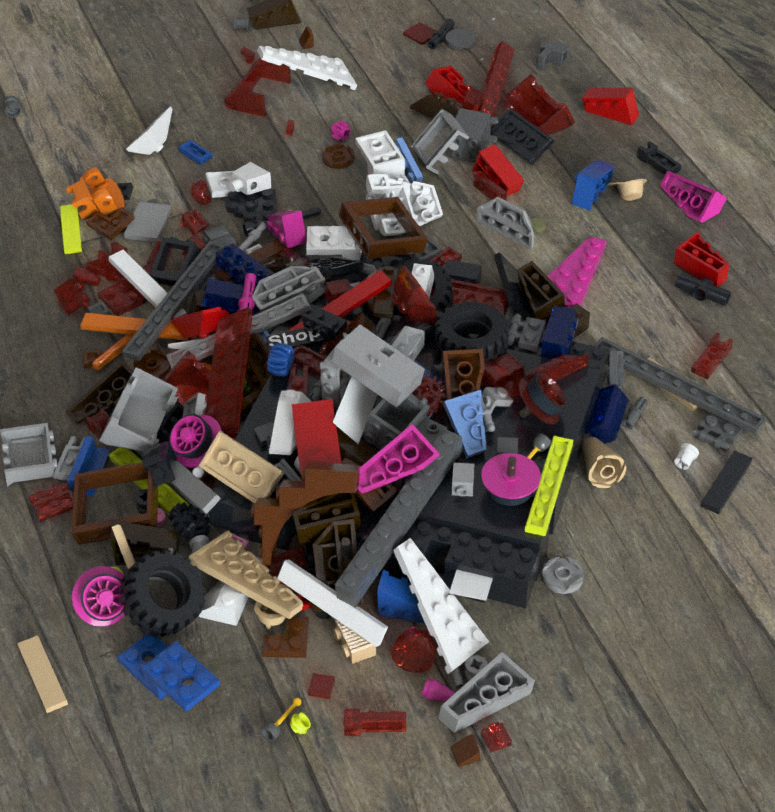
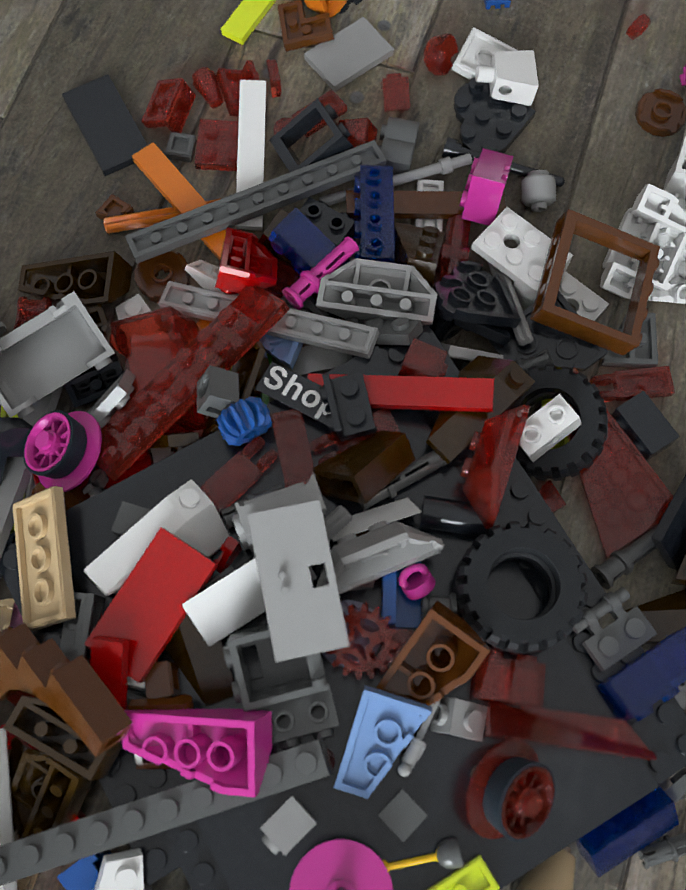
camera: 40 degrees right, 25 degrees up
(43, 326) = (105, 123): none -> black tile
(254, 358) = (217, 391): none -> dark grey brick
(312, 216) = (538, 190): none -> light grey head
(427, 362) = (416, 581): none -> dark pink tile

